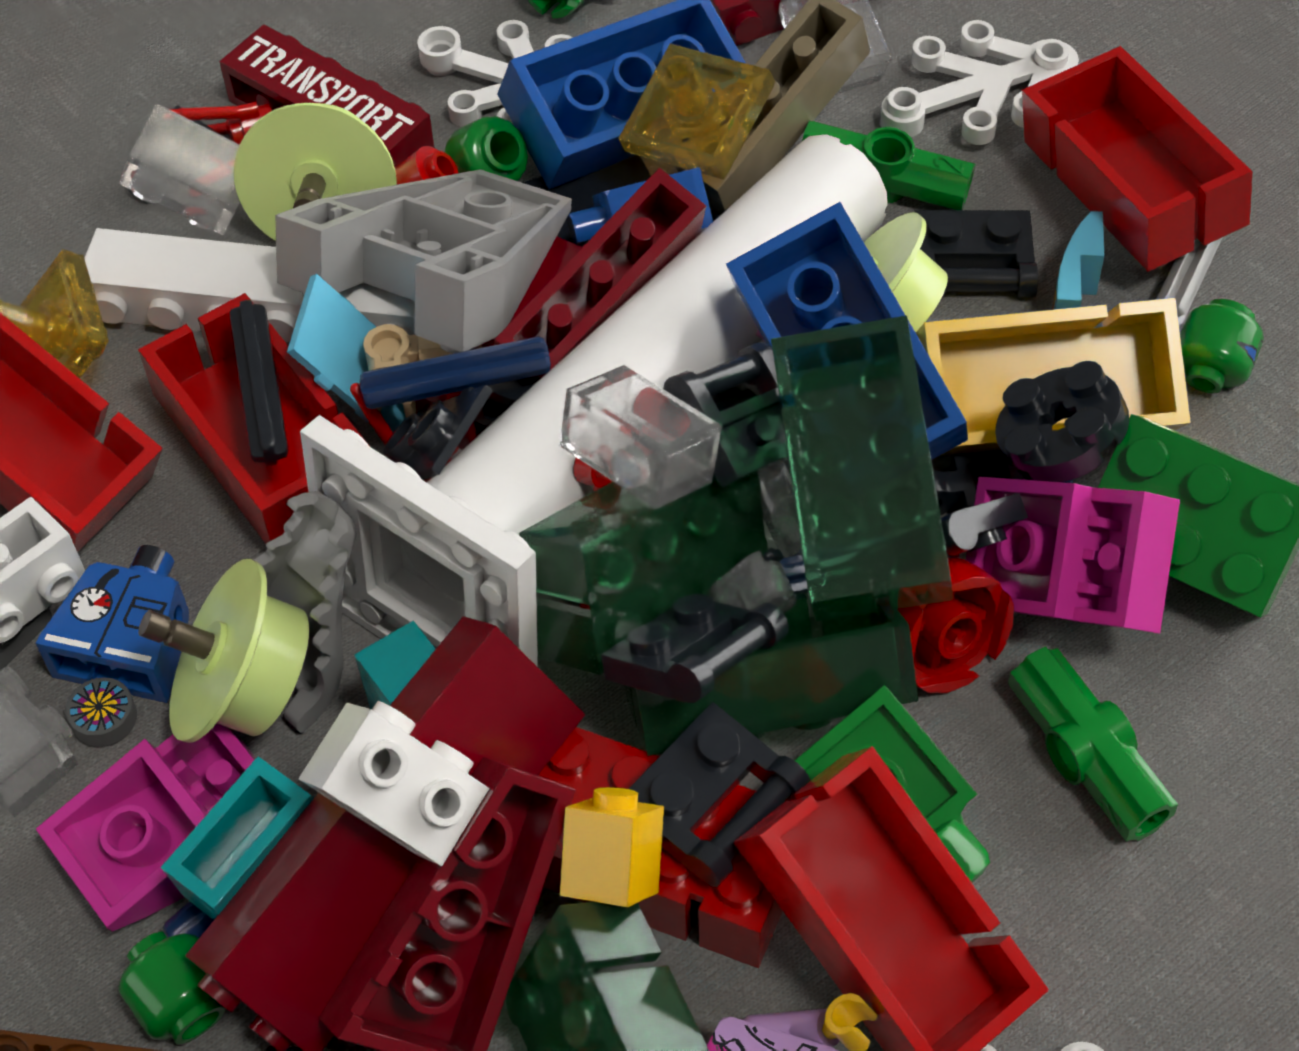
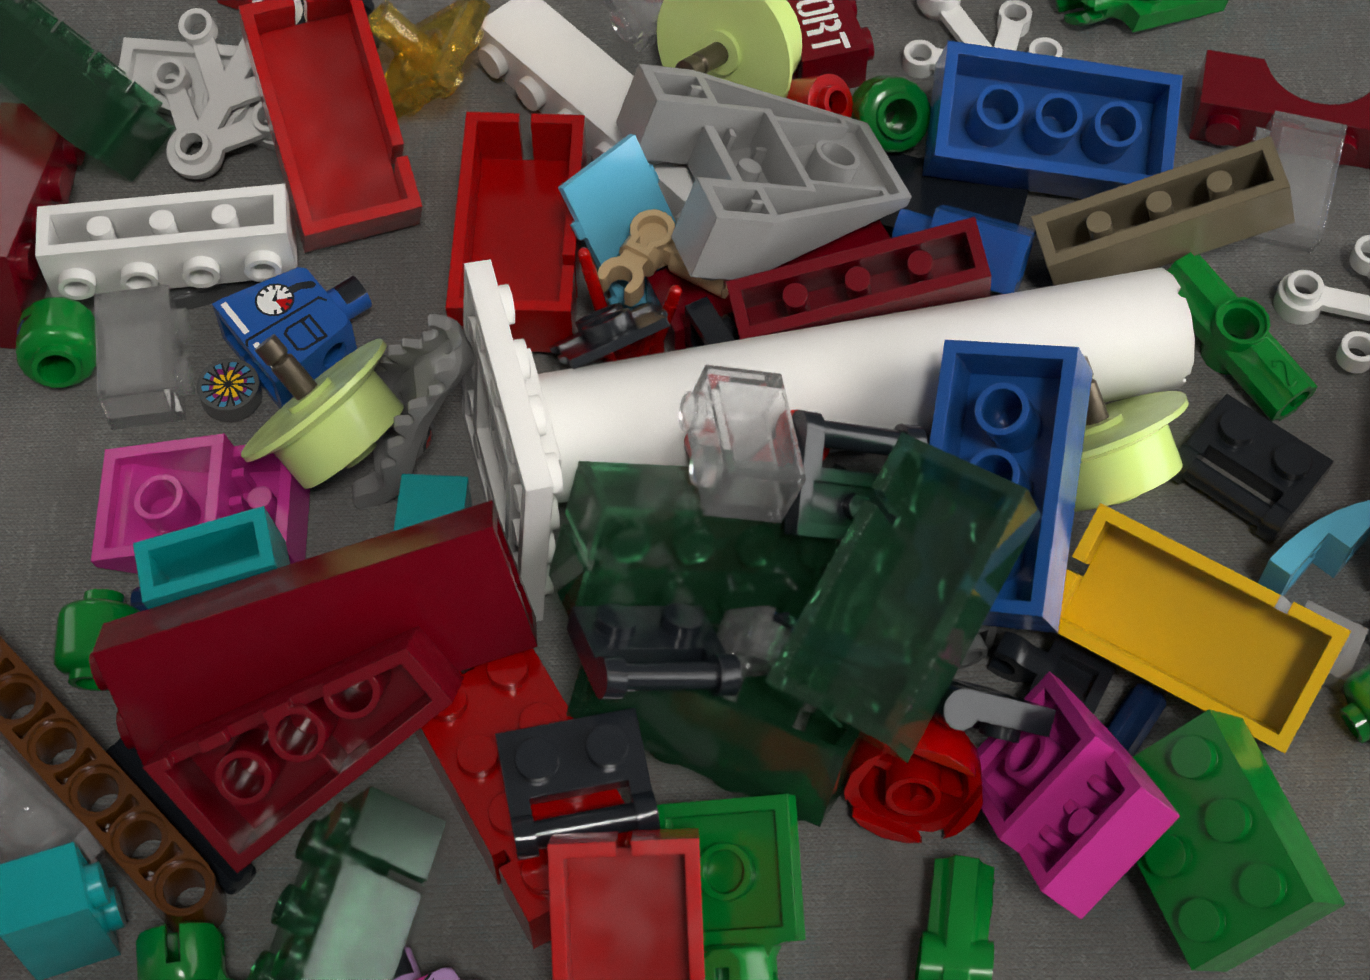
camera: 35 degrees right, 5 degrees up
(258, 383) = (528, 196): black axle -> none
(395, 780) = (317, 599): white brick -> none
(454, 372) = (669, 290): dark blue axle -> none
(612, 848) = (452, 771): yellow brick -> none
(685, 85) = (1072, 174): clear yellow plate -> none
(1032, 406) = (1139, 644): black plate -> none

